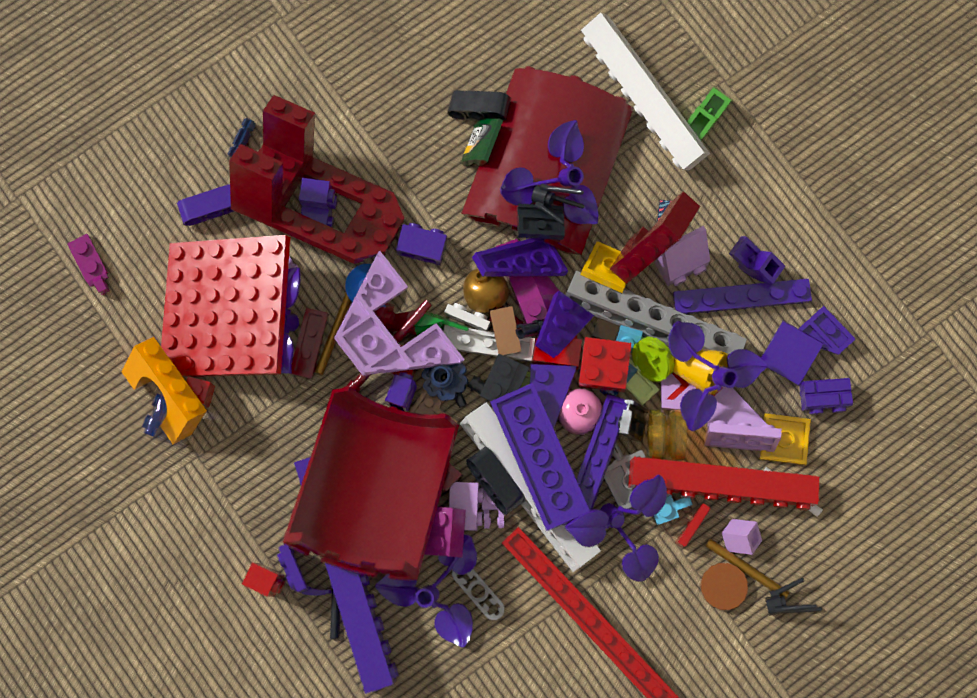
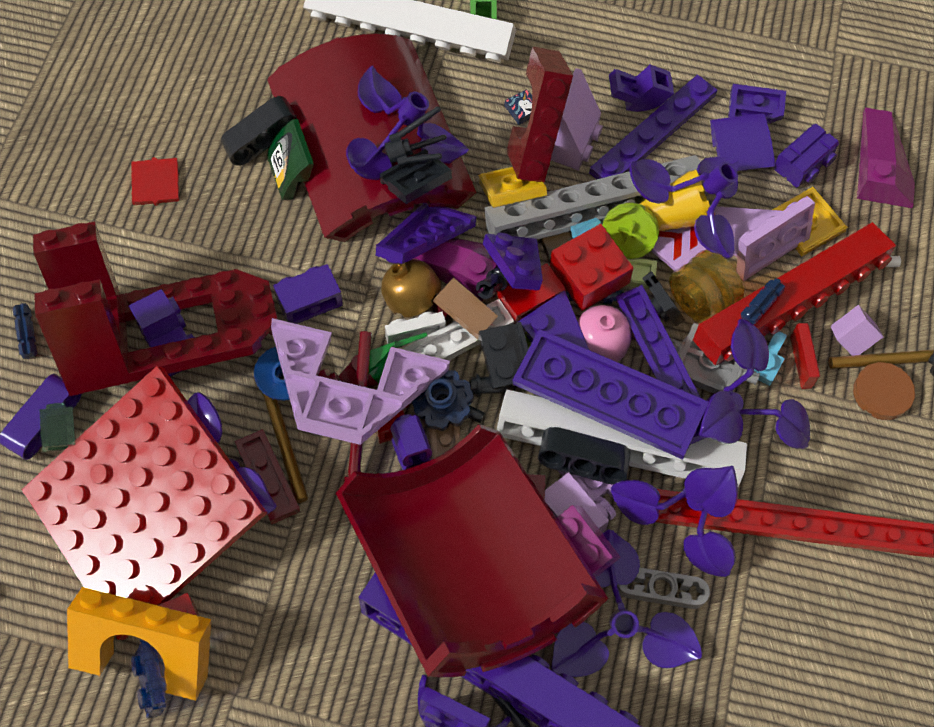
camera: 45 degrees left, 15 degrees down
(210, 223) = (56, 427): none -> clear green brick
(392, 89) = (155, 181): none -> red piece
(534, 564) = (707, 490): none -> dark purple plant
(687, 474) = (763, 301): none -> dark blue axle
(876, 442) = (883, 162): none -> magenta wedge

